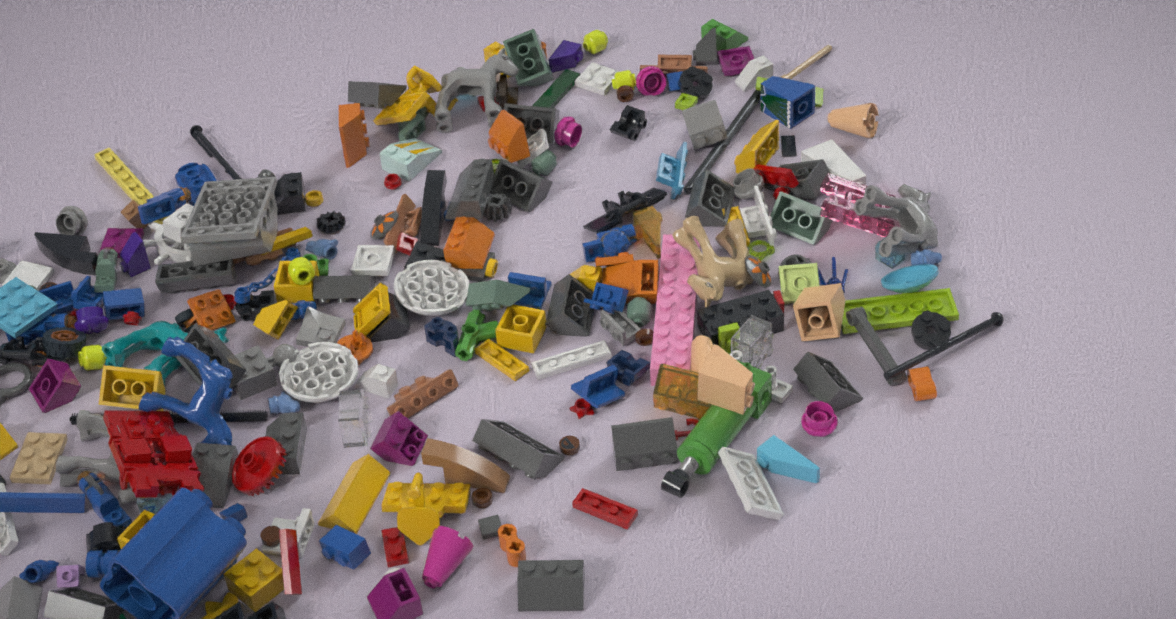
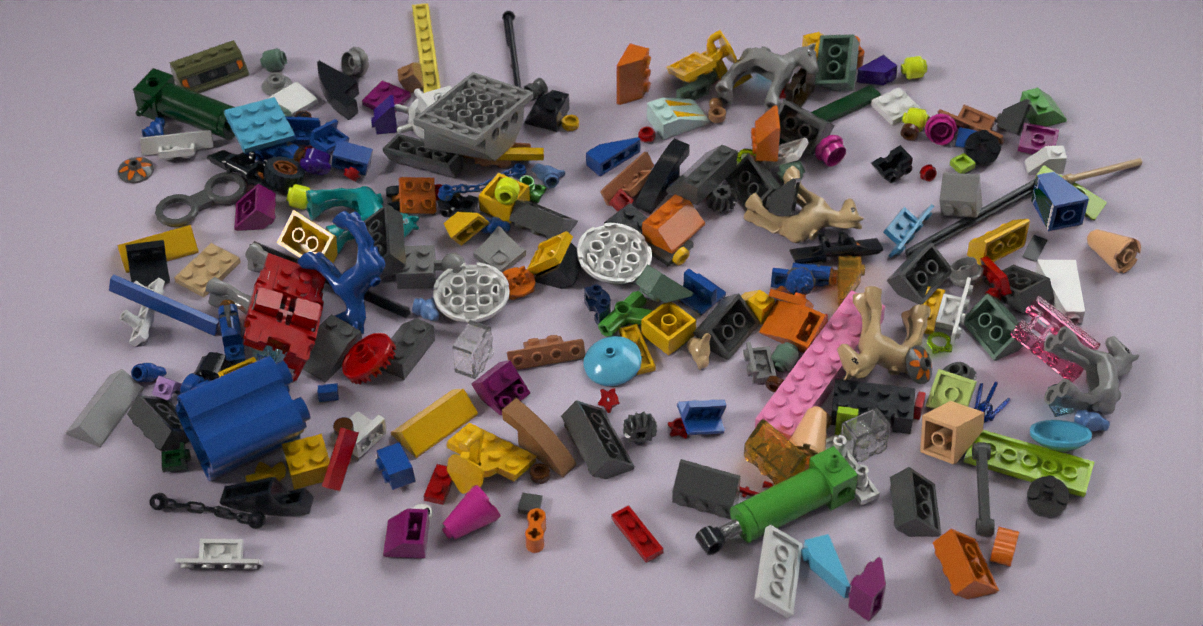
camera: 25 degrees right, 5 degrees up
(106, 270) = (355, 120): sand green plate -> none
(163, 204) = (435, 77): blue plate -> none
(193, 177) = (483, 61): blue tile -> none
(337, 223) = (570, 157): black gear -> none
(367, 210) = (610, 155): none -> blue slope
(373, 260) = (583, 204): white plate -> none
(374, 93) = (679, 41): dark grey slope -> none
(378, 380) = (518, 323): white slope -> none
(383, 224) = (611, 173): dark grey dish -> none
(444, 140) = (716, 112): none -> medium nougat plate
(486, 377) = (614, 367): none -> medium azure dish
(506, 404) = (613, 399): none -> red plate
(551, 420) = (640, 427): none -> dark grey gear
(551, 585) = (545, 584): dark grey slope -> none
(559, 182) = (784, 199): none -> dark grey slope
(560, 336) = (700, 350): none -> tan animal
(569, 445) = (645, 458): reddish brown tile -> none
(571, 360) = (698, 376): white tile -> none
(588, 187) = (812, 217): none -> tan animal
(608, 297) = (762, 332): blue bracket -> none
(628, 367) = (740, 407): dark blue cylinder -> none
(662, 120) = (928, 172): none -> red plate
(725, 382) = (802, 464): light nougat slope -> none
(819, 419) = (882, 538): dark pink piece -> none
(837, 463) = (868, 590): none -> magenta slope
(899, 412) = (964, 565): none -> orange slope
(996, 319) = (1122, 513): black bar -> none

